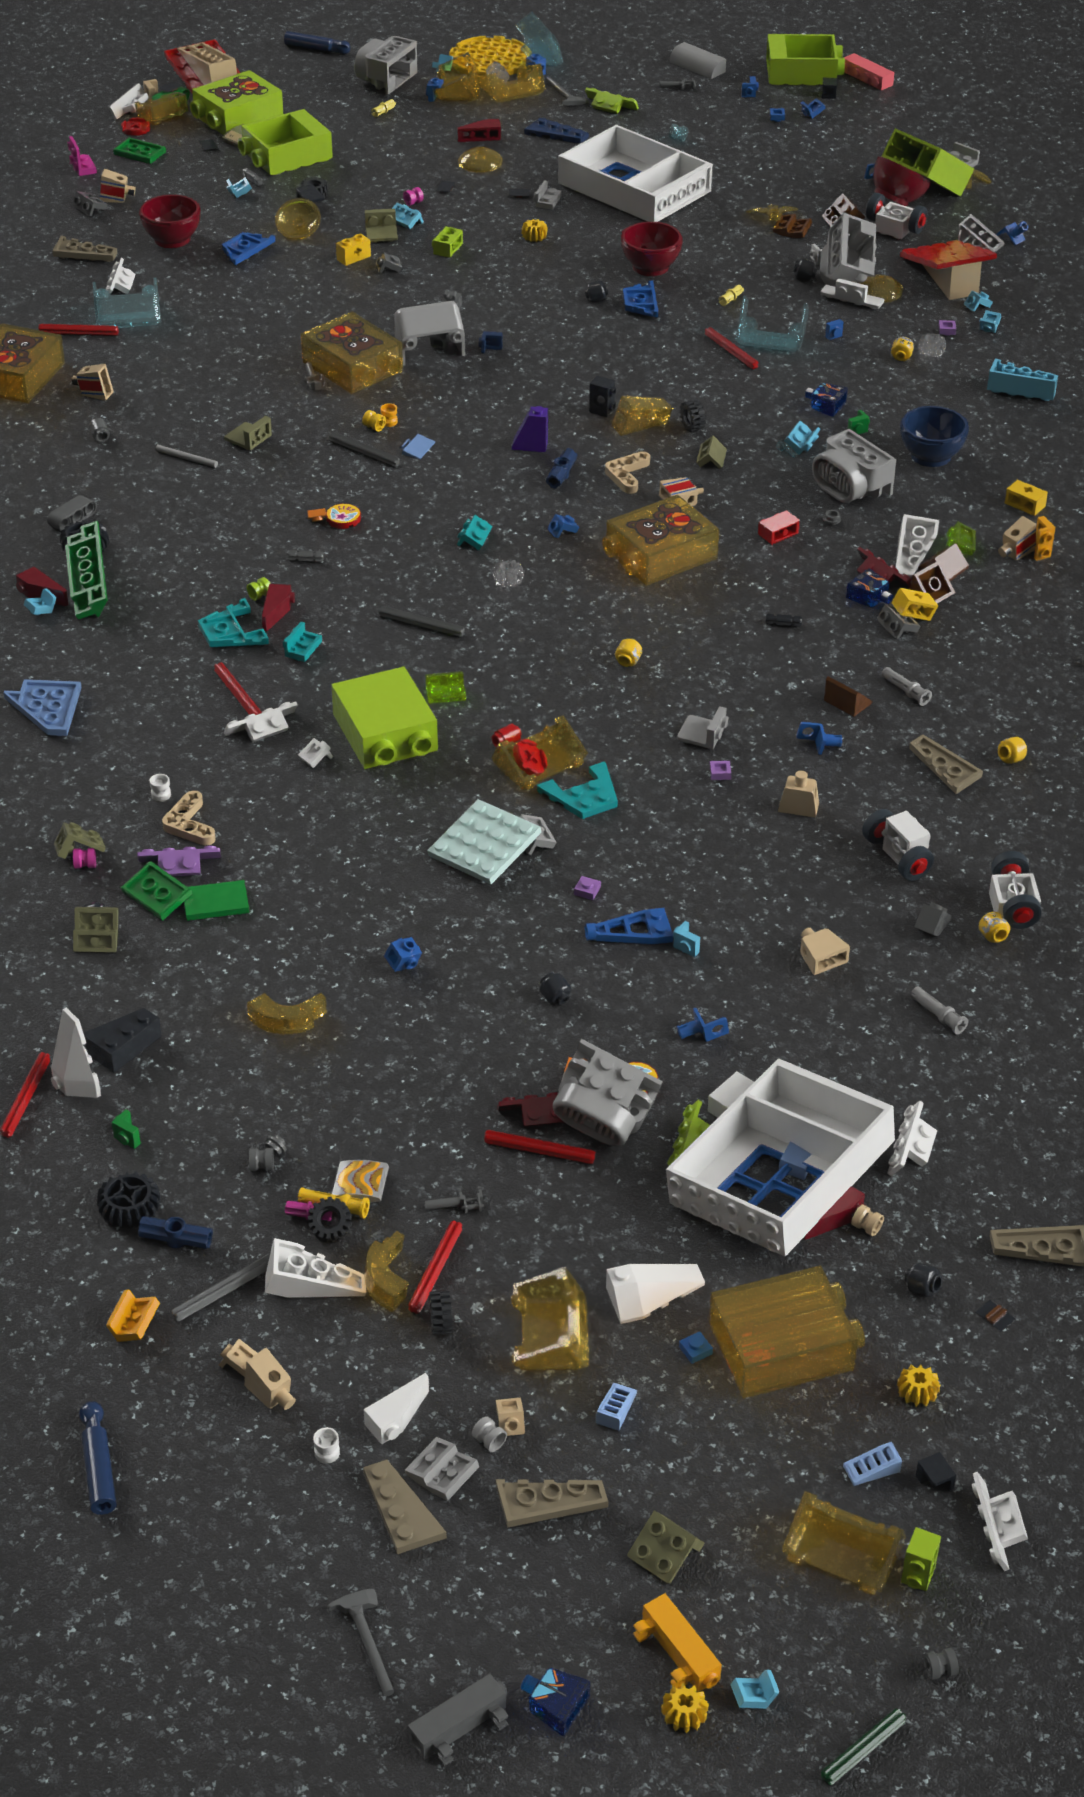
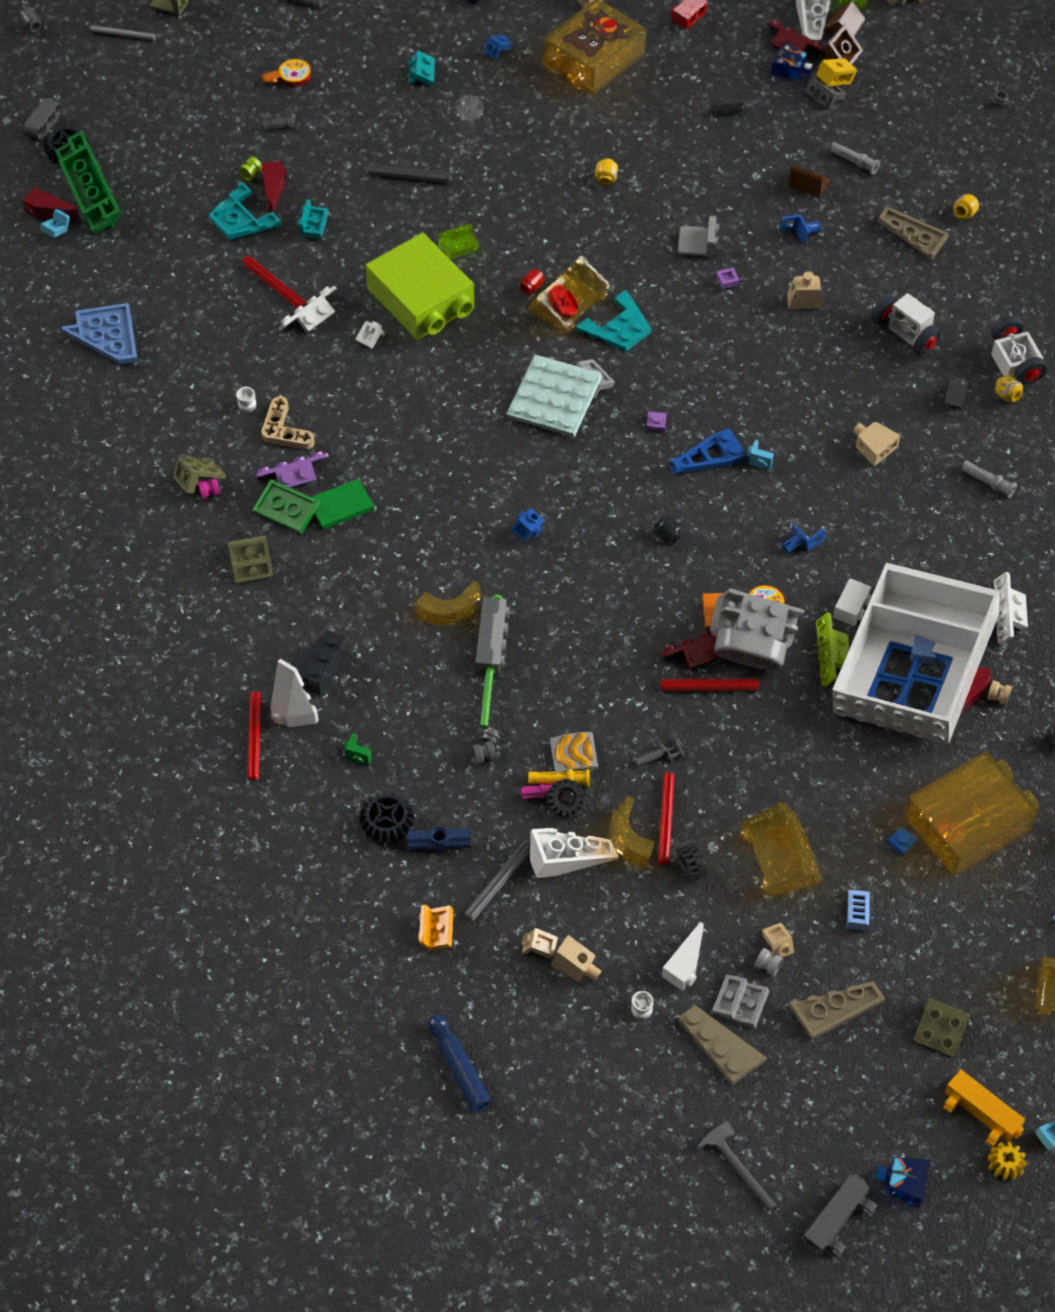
camera: 15 degrees left, 15 degrees up
(314, 1059) = (491, 646): none -> piece
(645, 1287) = (845, 797): white wedge -> none

